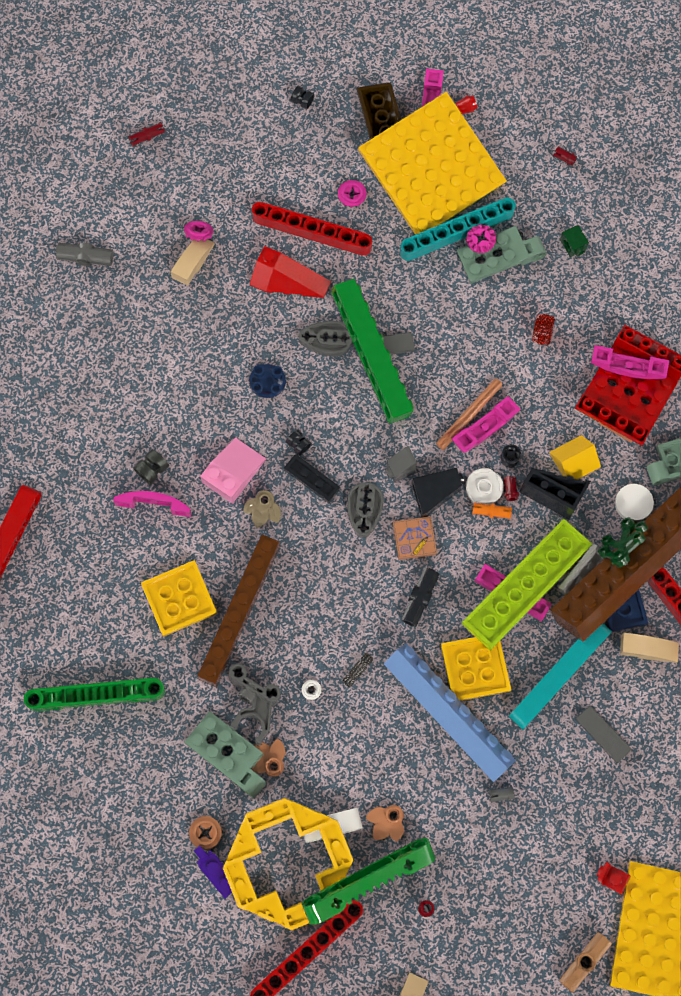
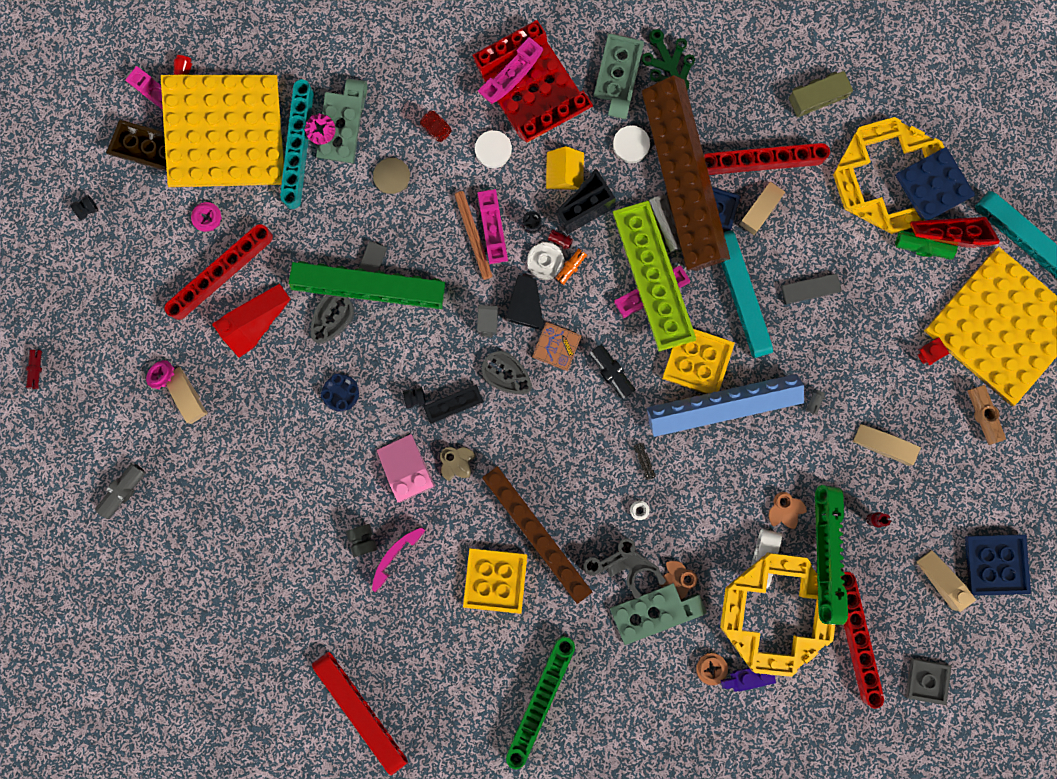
camera: 55 degrees left, 10 degrees up
(478, 319) = (391, 176): none -> dark tan dish
(500, 881) = (887, 445): none -> tan slope
(555, 389) = (493, 149): none -> white tile
(565, 156) = (284, 10): dark red pin -> none
(574, 241) = (369, 51): dark green brick -> none
(621, 556) = (681, 182): dark green plant -> none

